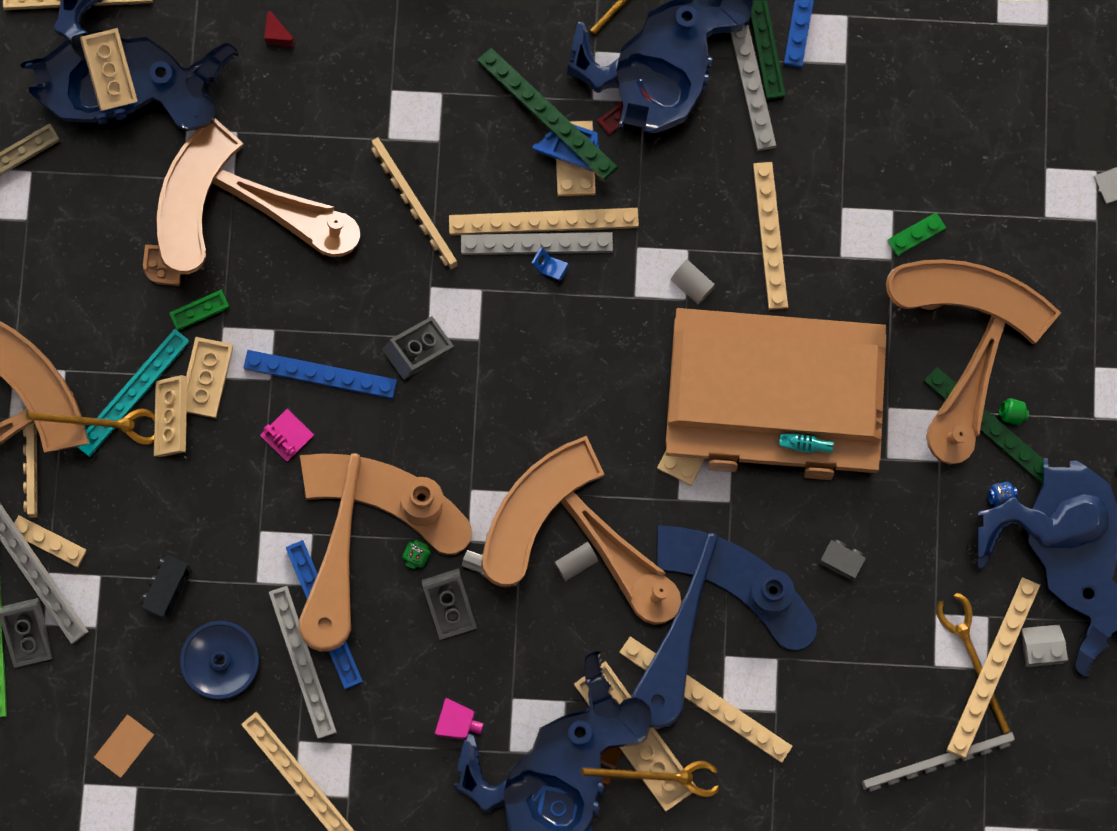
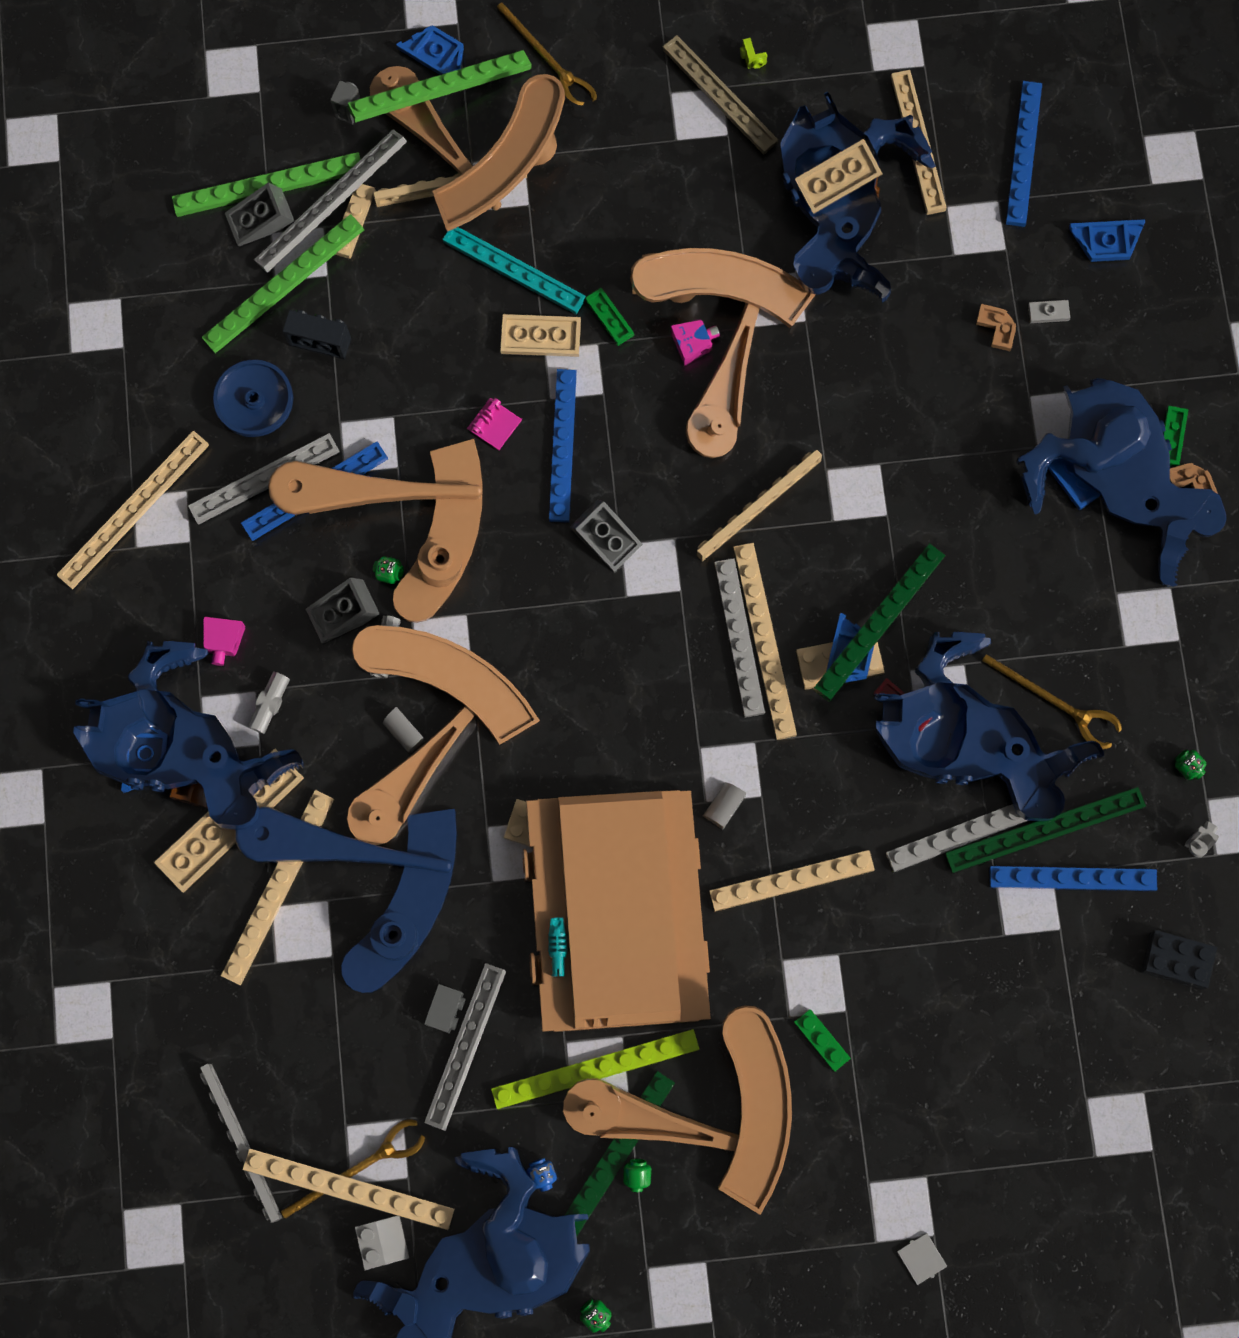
camera: 85 degrees right, 0 degrees up
(103, 617) = (283, 283): none -> bright green plate
(124, 424) = (476, 264): pearl gold piece -> none
(124, 746) = (161, 328): medium nougat sticker -> none
(170, 416) = (493, 307): tan plate -> none
(238, 236) = (693, 339): none -> dark pink torso
(276, 33) = (917, 337): dark red slope -> none
(527, 685) = (268, 702): none -> light grey piece
(550, 266) = (716, 654): blue bracket -> none
(683, 777) = (188, 873): pearl gold piece -> none
(879, 546) = (465, 1047): none -> light grey plate
(914, 435) = (595, 1068): none -> lime plate

